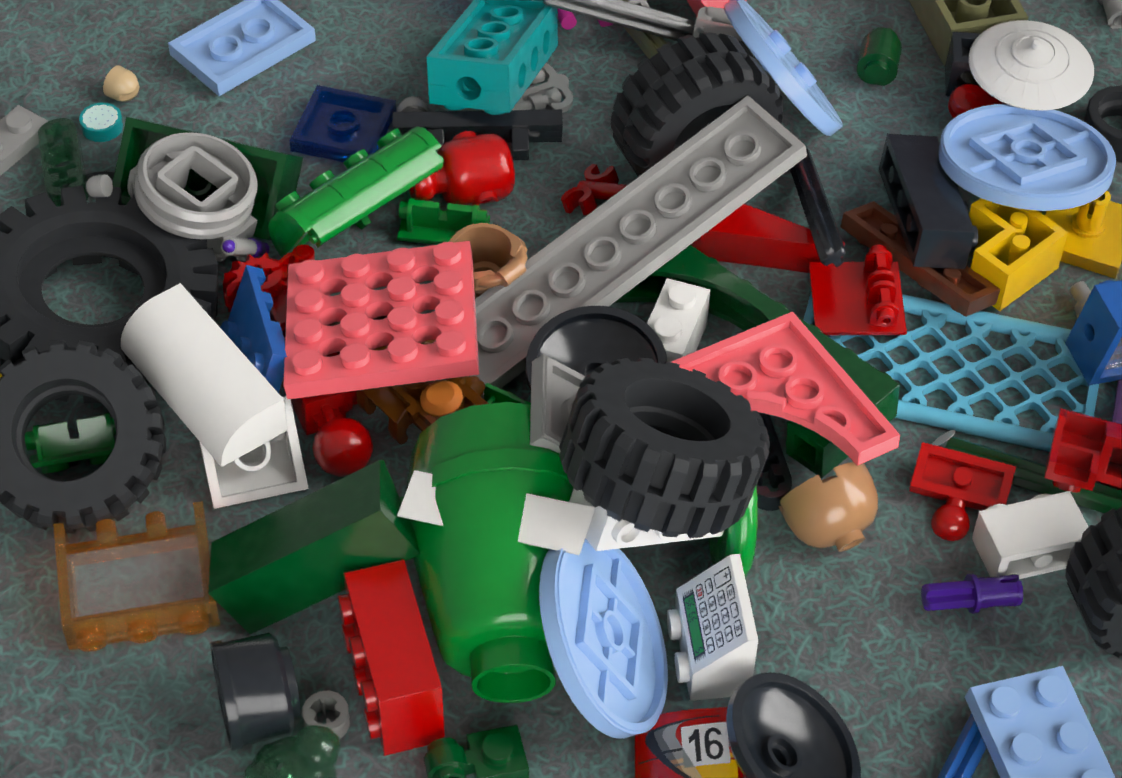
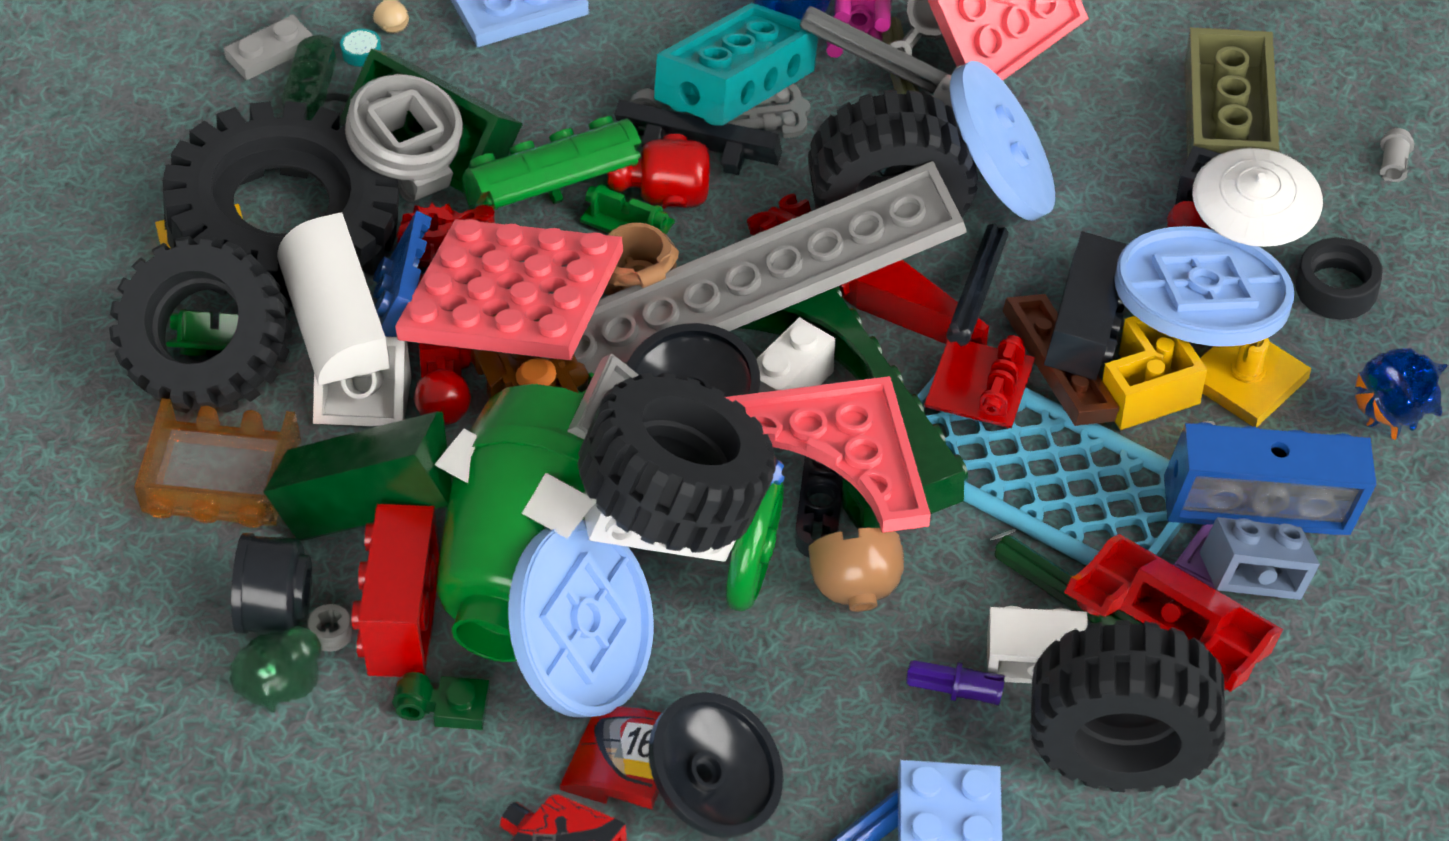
camera: 20 degrees right, 0 degrees up
(99, 186) = (320, 107): light grey piece -> none
(241, 247) = (427, 194): piece -> none
(341, 124) = (573, 98): clear blue plate -> none
(714, 631) = (693, 644): white slope -> none
(879, 57) = (1122, 154): dark green brick -> none
(961, 482) = (995, 578): red plate -> none

